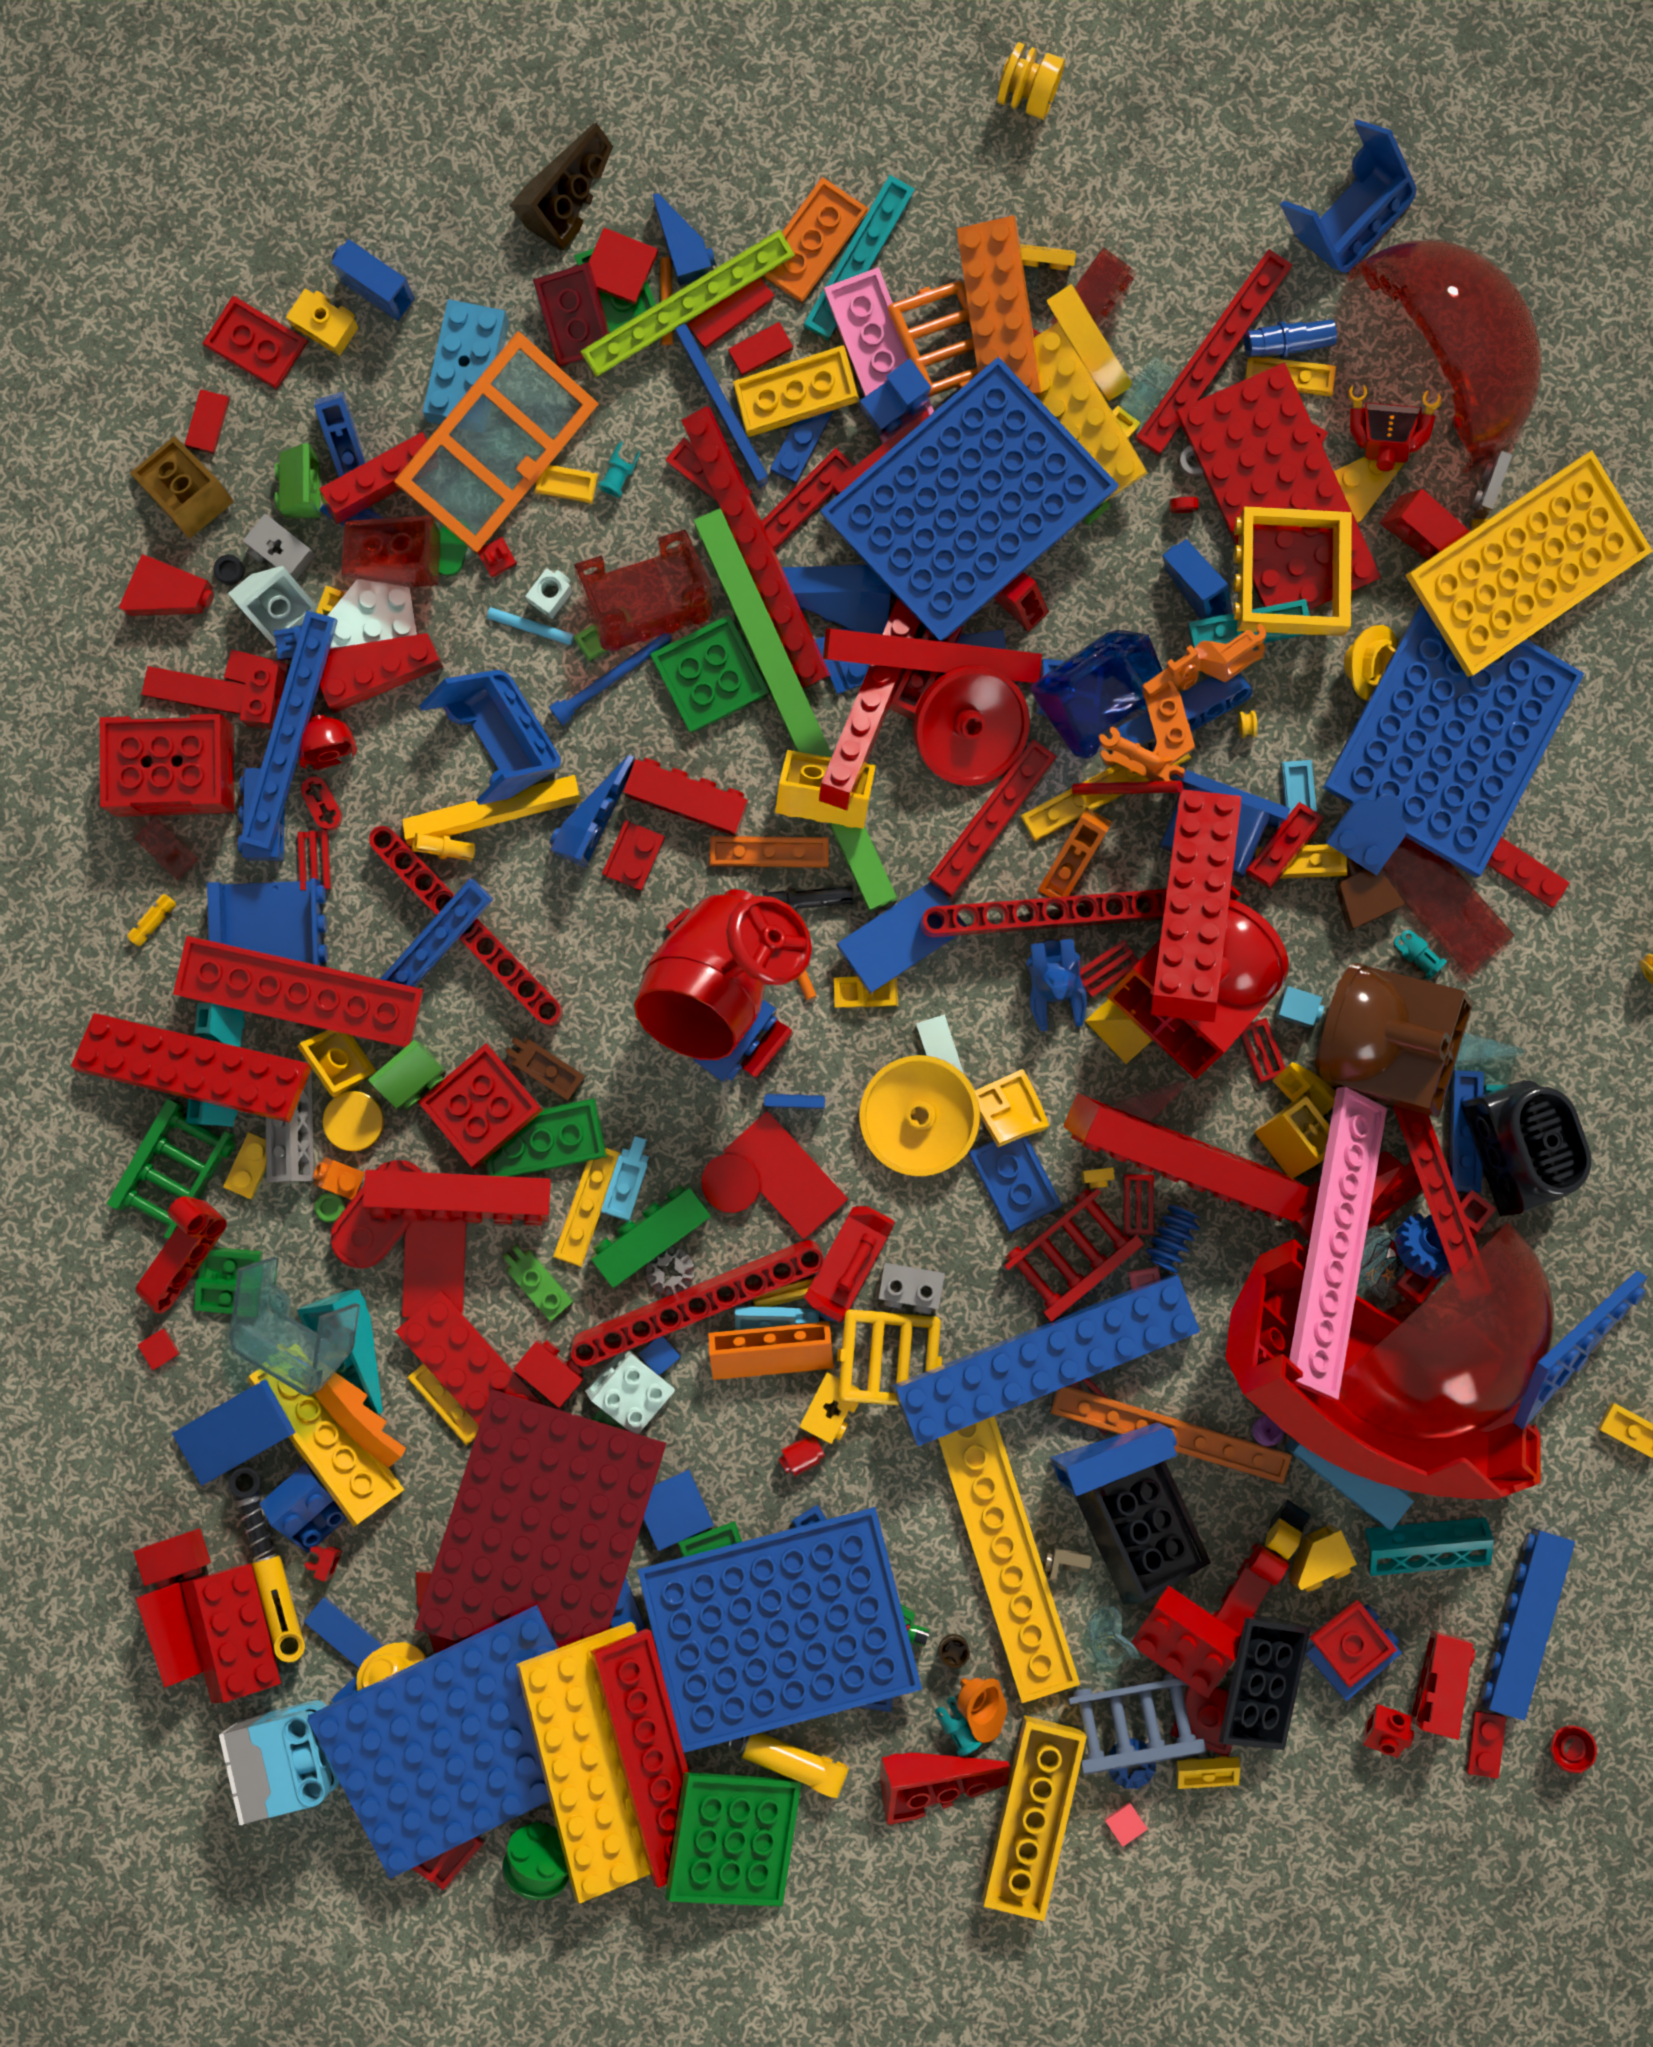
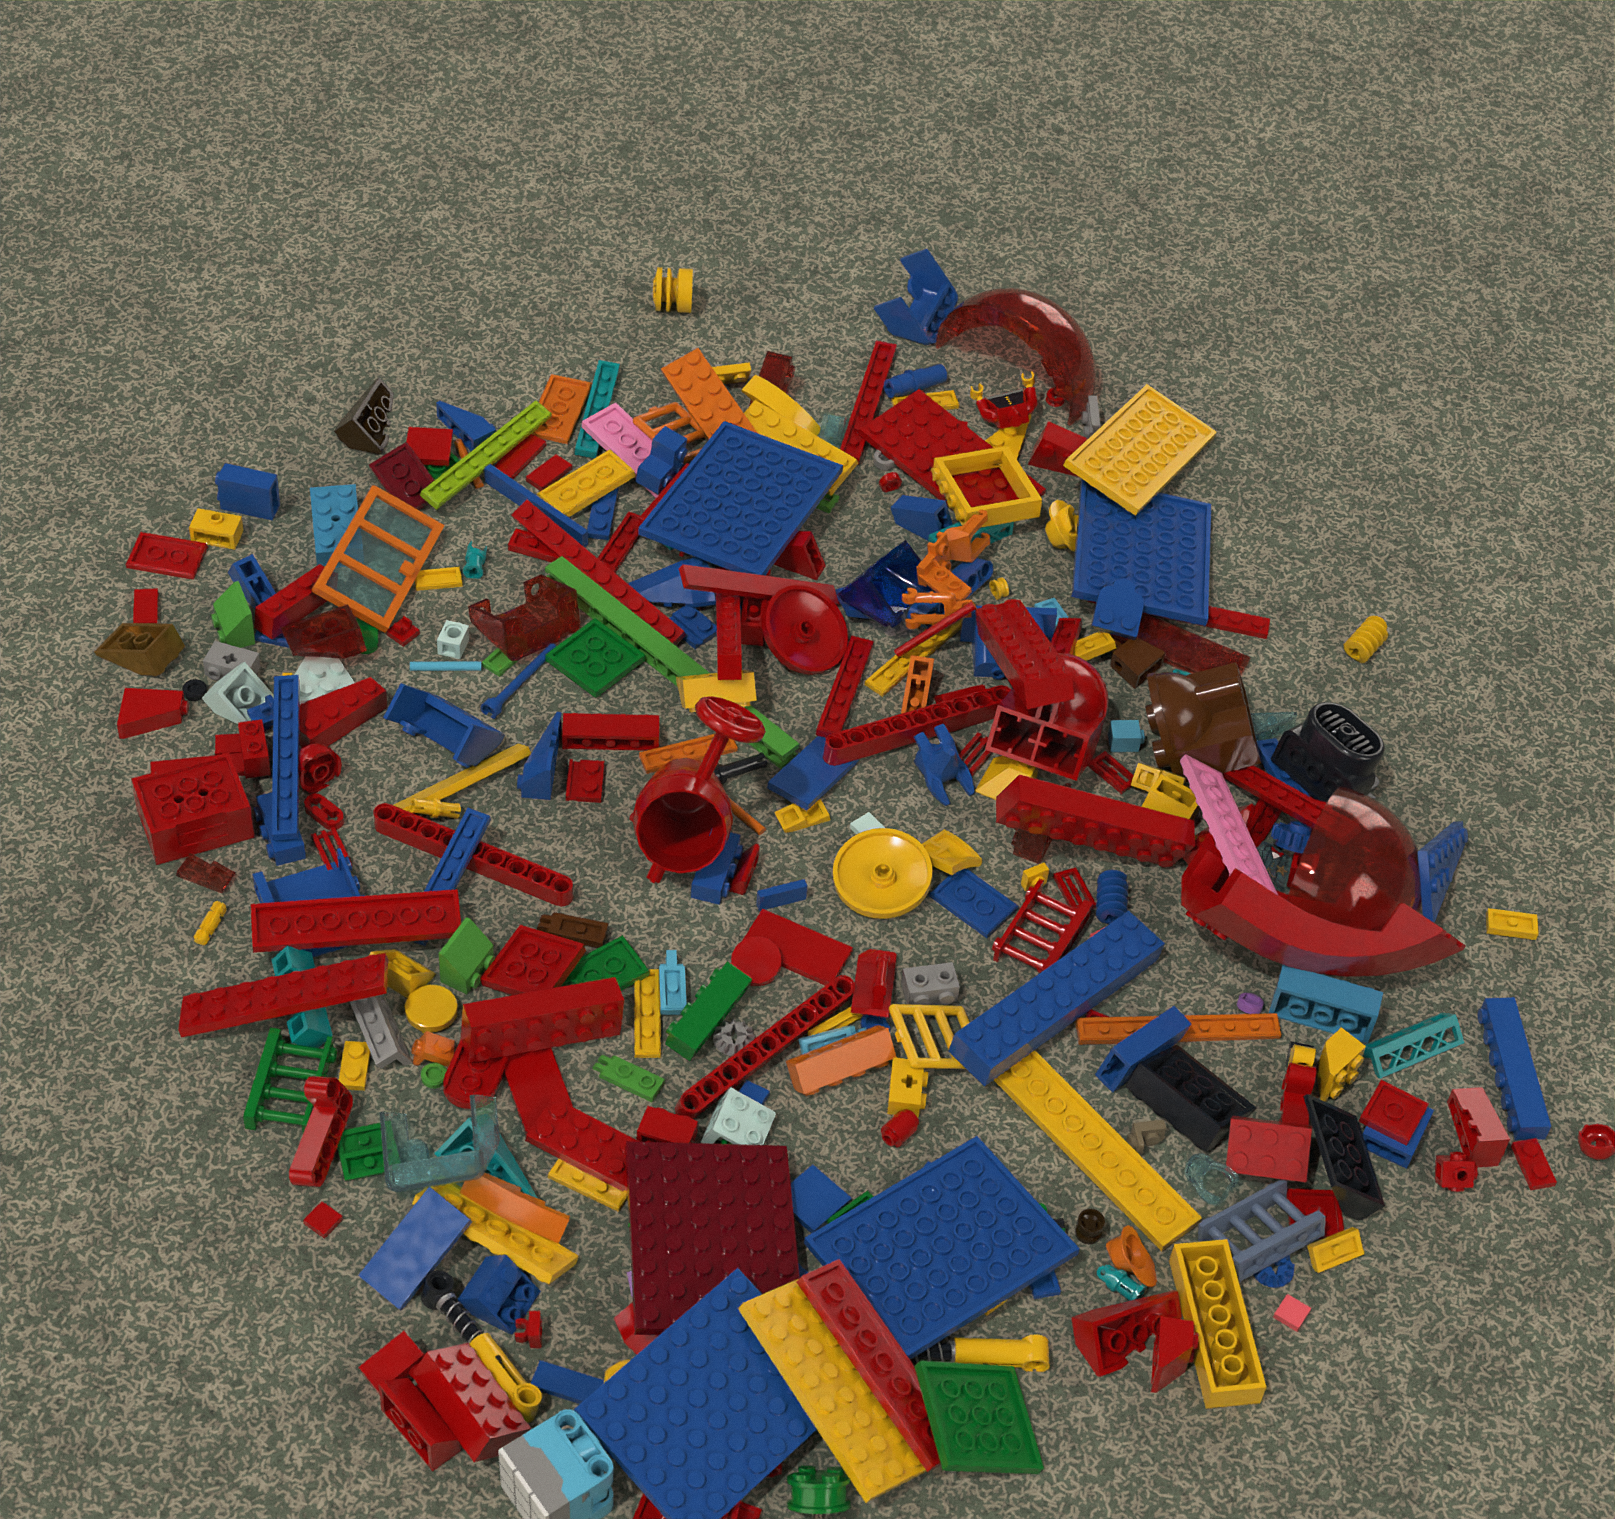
camera: 30 degrees left, 35 degrees down
(967, 1839) = (1172, 1351): none -> red slope
(1126, 877) = (954, 694): none -> red tile

